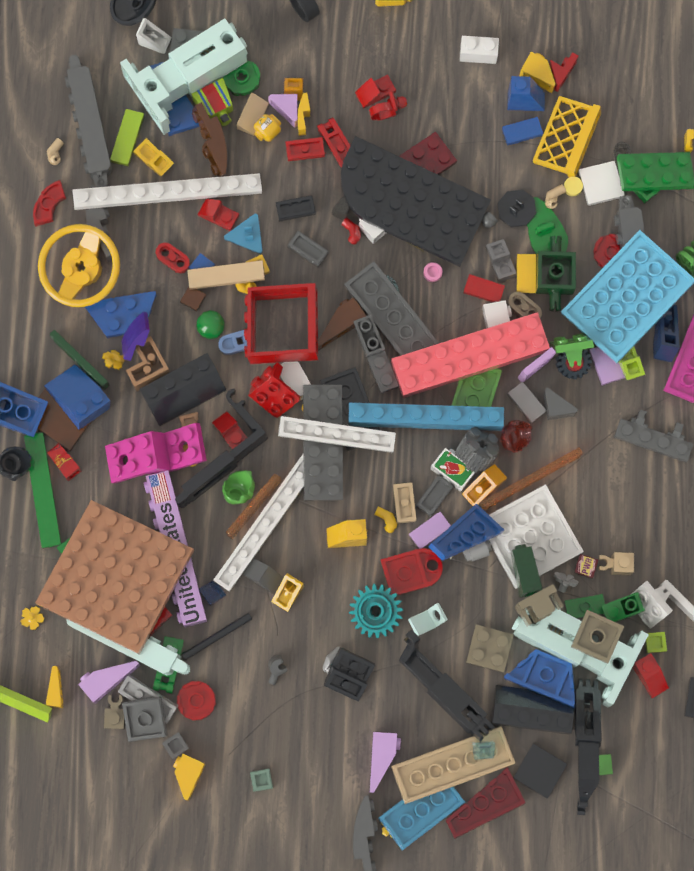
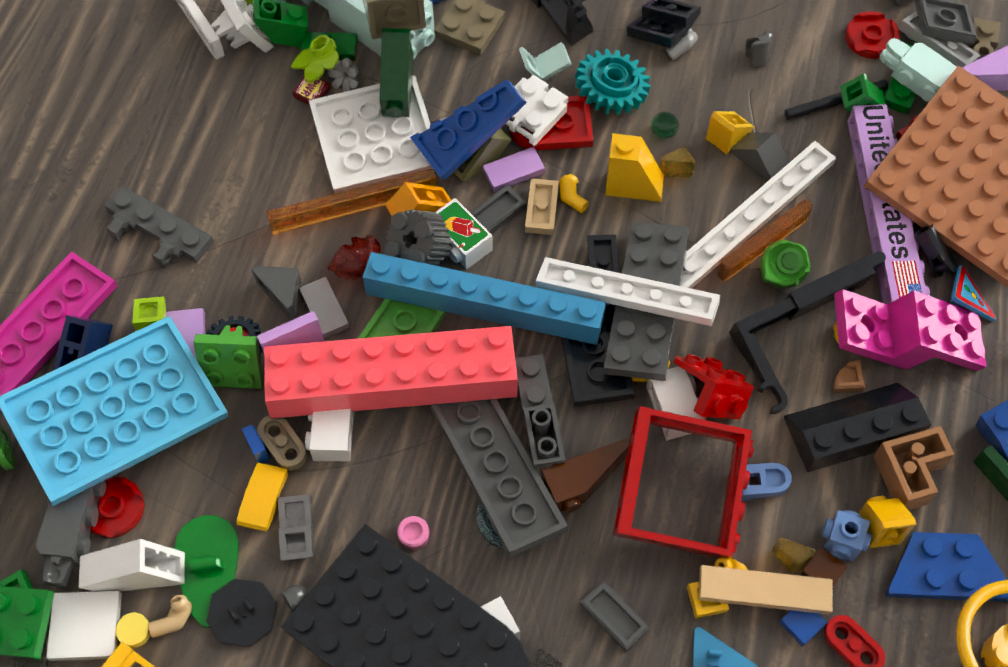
camera: 165 degrees left, 15 degrees down
(113, 359) = (967, 494): yellow plant -> none
(118, 492) = (967, 295): none -> piece
(135, 335) = (934, 507): dark purple slope -> none
(142, 516) = (933, 248): none -> black bar
(161, 328) = (888, 521): none -> yellow slope
(183, 323) = (846, 535): none -> medium blue brick
(199, 631) = (861, 92): none -> green brick
(210, 324) = (799, 520): green hair -> none
(212, 300) = (792, 554): none -> clear yellow slope
(212, 592) = (841, 146): clear blue slope -> none
(229, 430) = (786, 352): red slope -> none
(320, 553) = (678, 164): none -> clear yellow slope
(333, 587) = (664, 125): none -> clear green plate
(354, 231) = (529, 626): red arm -> none
(356, 469) = (603, 252): none -> black plate
(427, 574) = (540, 111): none -> white plate
(483, 289) = (338, 487): red tile -> none
(540, 301) = (256, 444): none -> blue tile
(565, 266) = (205, 463): dark green brick -> none
(584, 213) = (132, 567): none -> white slope
(586, 582) = (317, 58): none -> lime plate
(619, 563) = (263, 78): tan brick -> none

